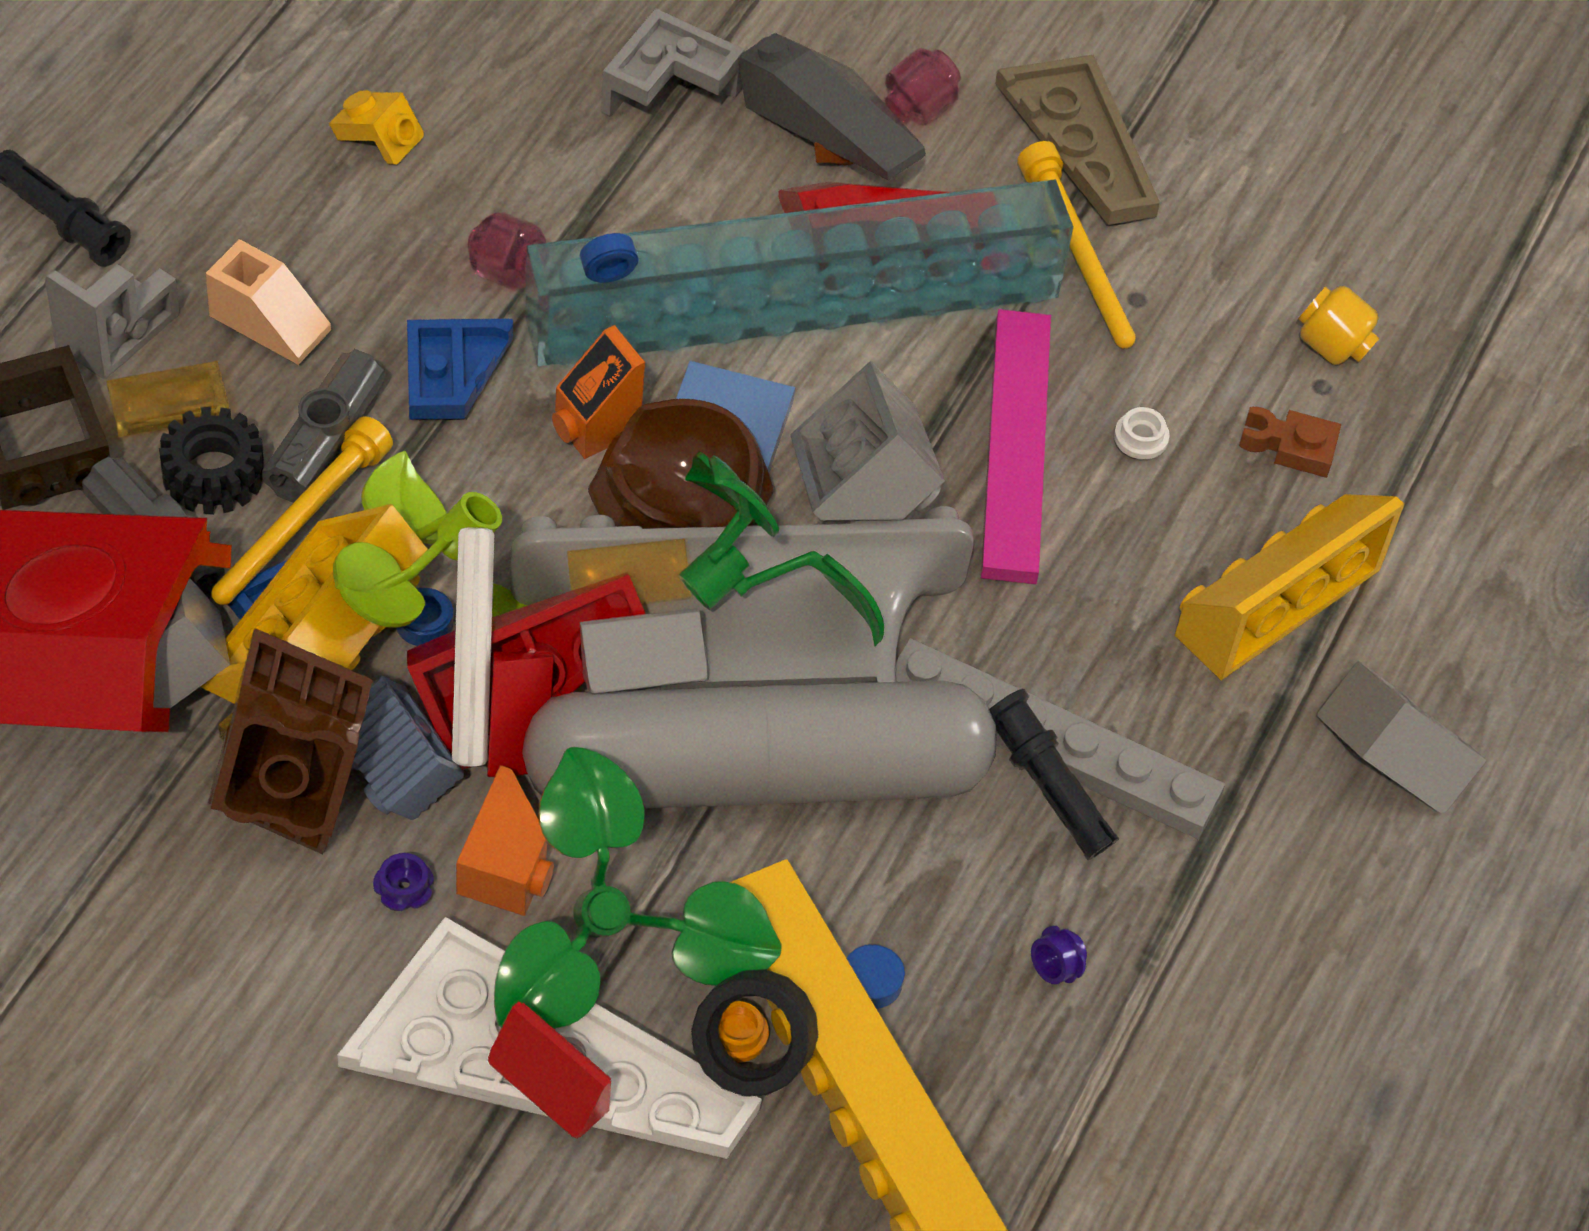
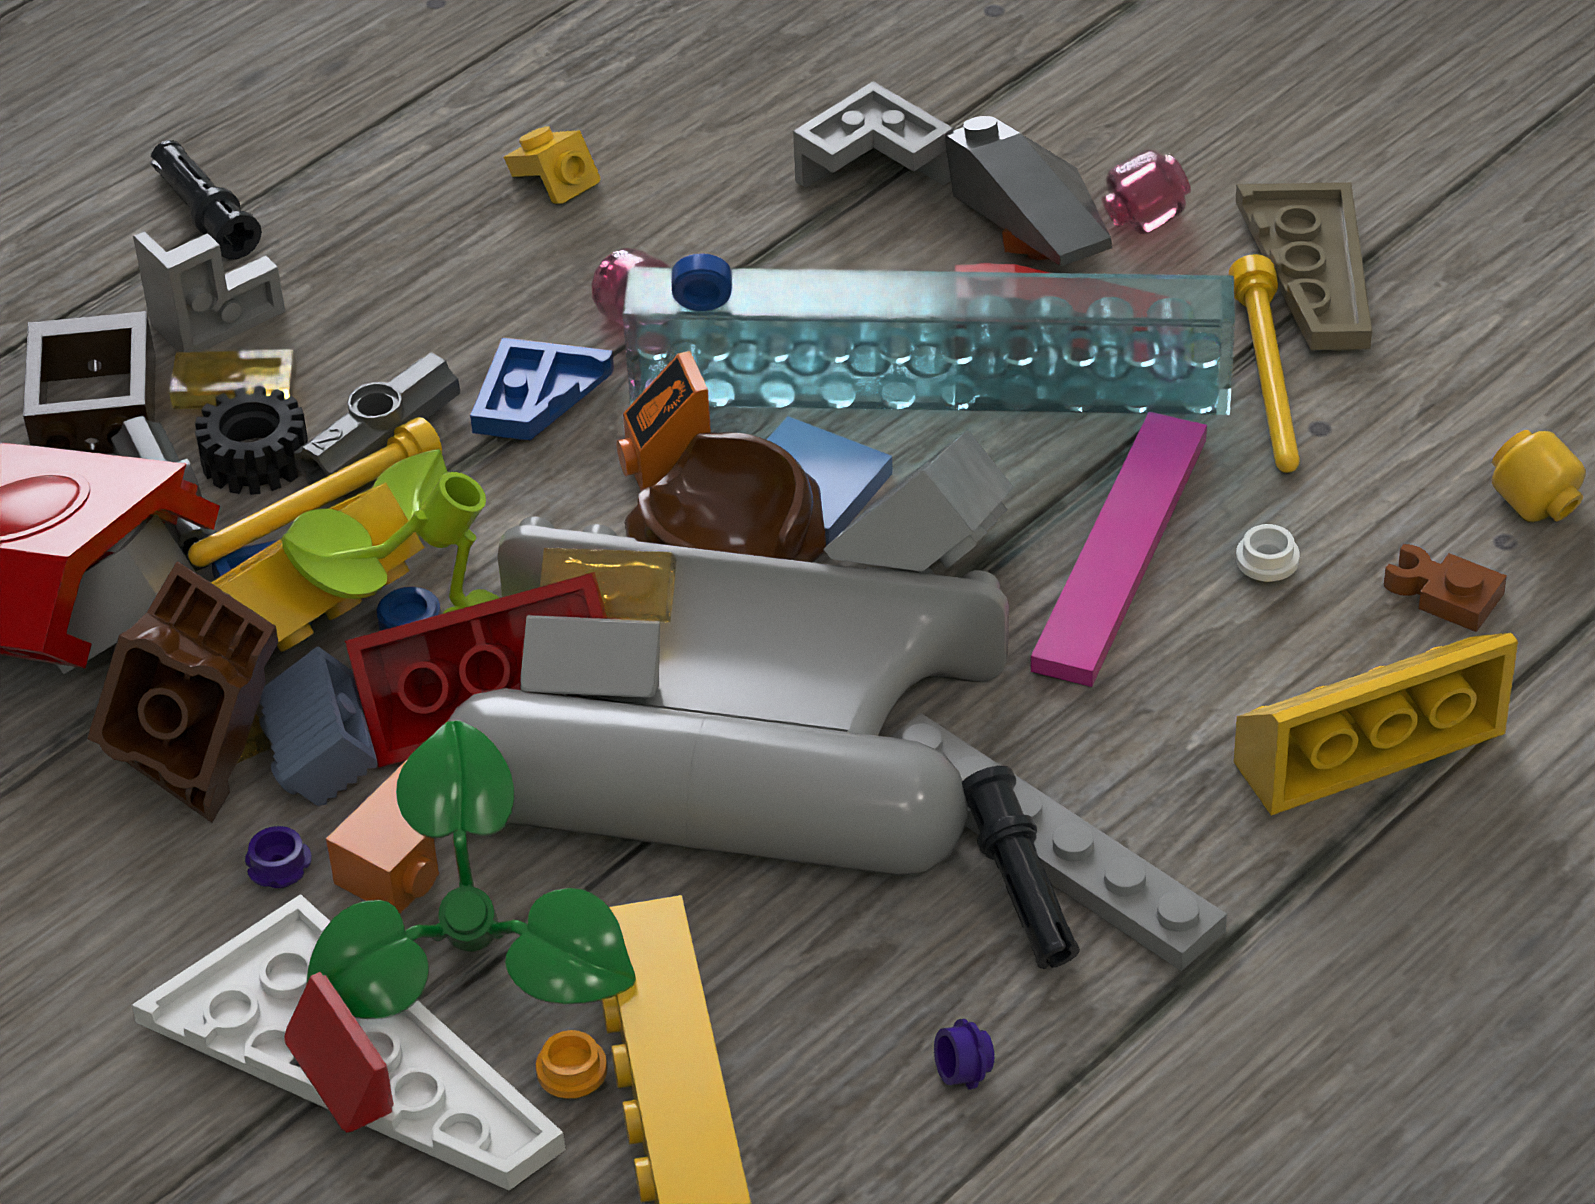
camera: 25 degrees right, 10 degrees down
(264, 302) = (361, 301): light nougat slope -> none
(473, 646) = (410, 625): white axle -> none
(518, 691) = (444, 679): red slope -> none
(721, 564) = (696, 580): green plant -> none
(721, 1066) = (520, 1054): black tyre -> none
(879, 973) = (747, 1039): blue tile -> none
(1400, 738) = (1454, 902): light grey panel -> none

